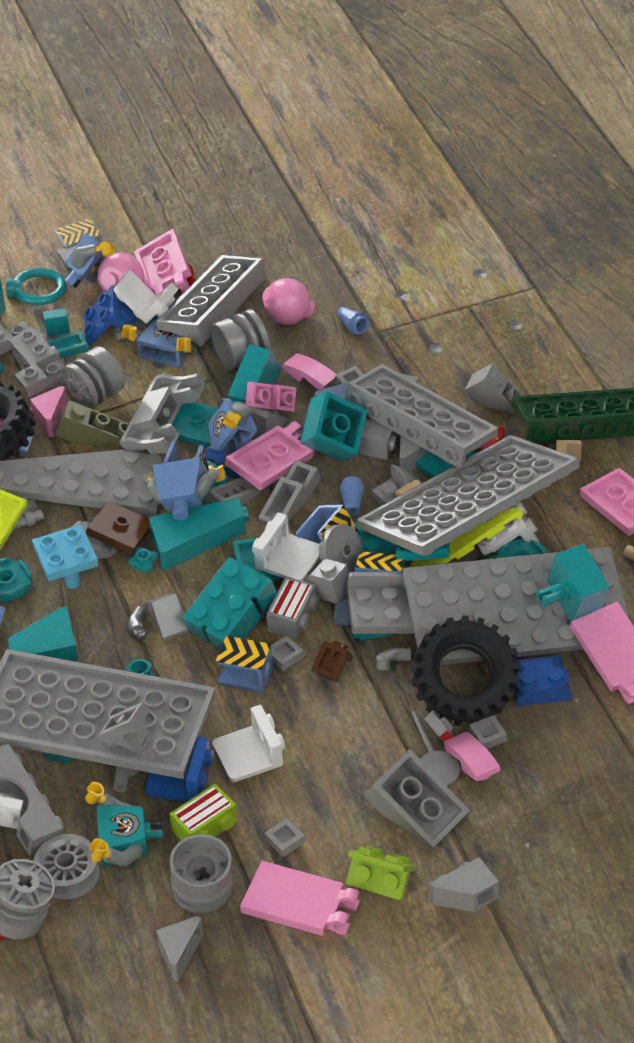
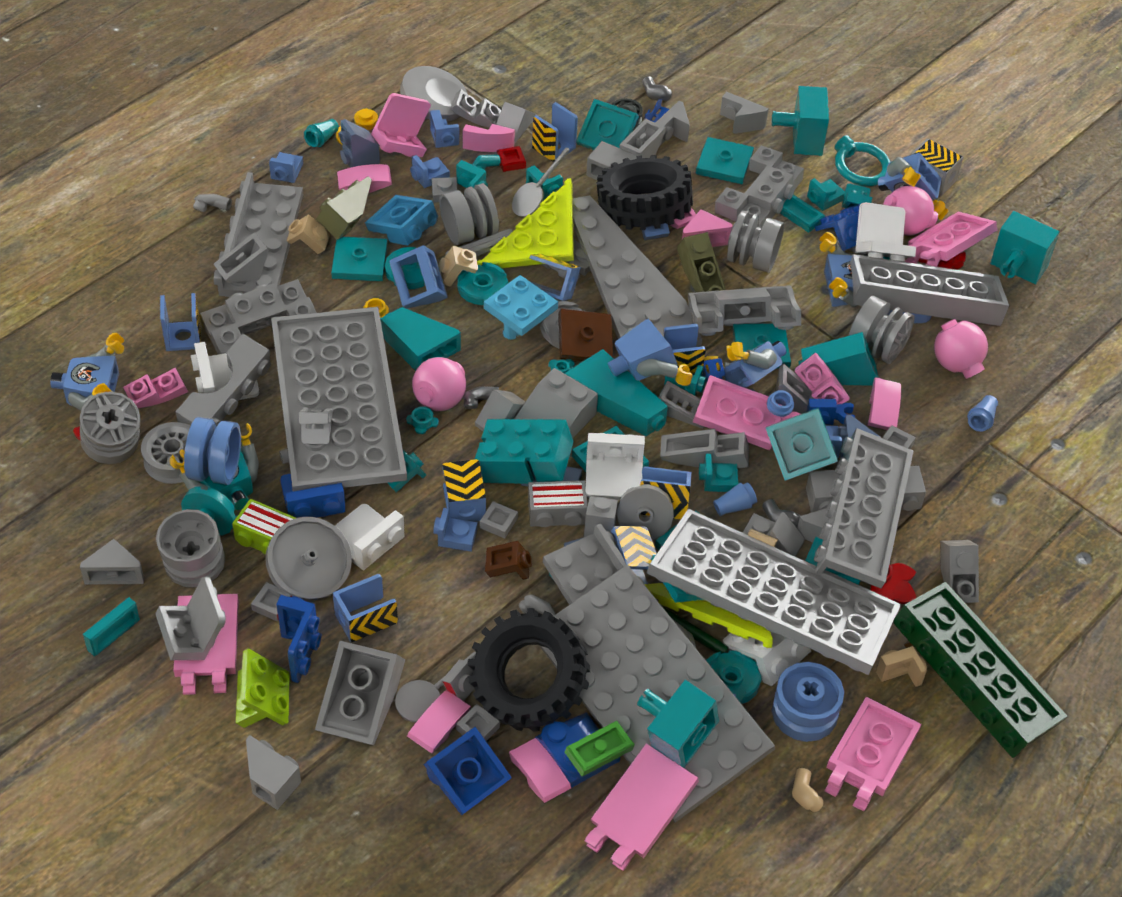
camera: 60 degrees right, 5 degrees up
(47, 505) = (570, 279): none -> medium blue piece
(78, 303) = (855, 195): none -> teal bracket
(112, 643) = (439, 383): none -> bright pink brick
(117, 811) = (212, 450): none -> medium blue wheel
(157, 849) = (213, 504): none -> teal plate
(185, 569) = (561, 398): none -> light grey slope
(209, 225) = (1024, 247): none -> teal brick
(249, 963) = (111, 626): none -> teal tile
(258, 792) = (308, 558): none -> light grey piece
(279, 687) = (455, 532): none -> medium blue bracket
(282, 425) = (783, 398): none -> medium blue plate
(292, 885) = (192, 629): none -> light grey bracket
(297, 406) = (831, 410): none -> blue plate
(318, 495) = (718, 476): none -> teal bracket
(323, 781) = (370, 620): none -> medium blue piece
(340, 811) = (300, 625): none -> blue bracket
(379, 478) = (773, 512): none -> flat silver arm
(528, 751) = (467, 771): none -> blue slope
(552, 704) = (540, 769): none -> bright pink slope
(559, 653) = (599, 748): none -> bright green plate
(571, 519) = (807, 701): none -> medium blue wheel

